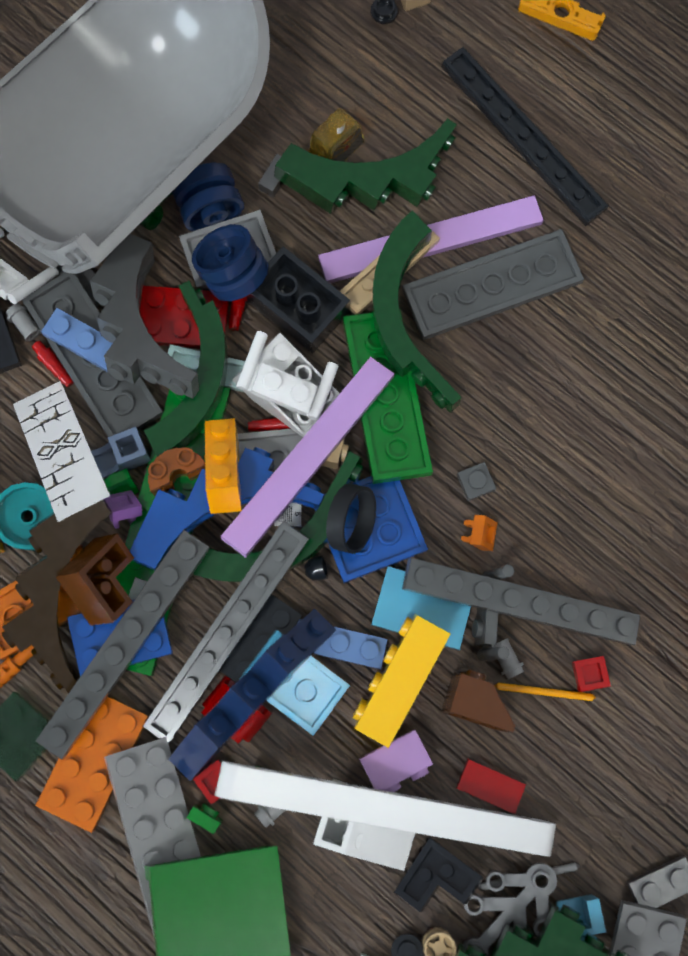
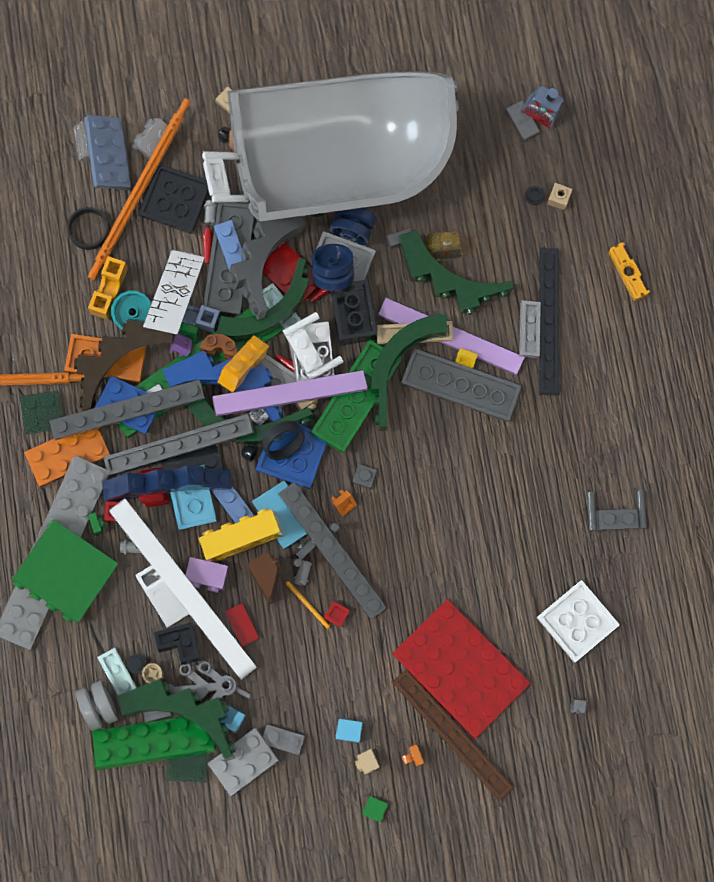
camera: 40 degrees right, 0 degrees up
(93, 582) = (136, 367): reddish brown brick -> none
(472, 248) = (466, 358): none -> yellow plate
(513, 159) = (529, 329): none -> light grey plate

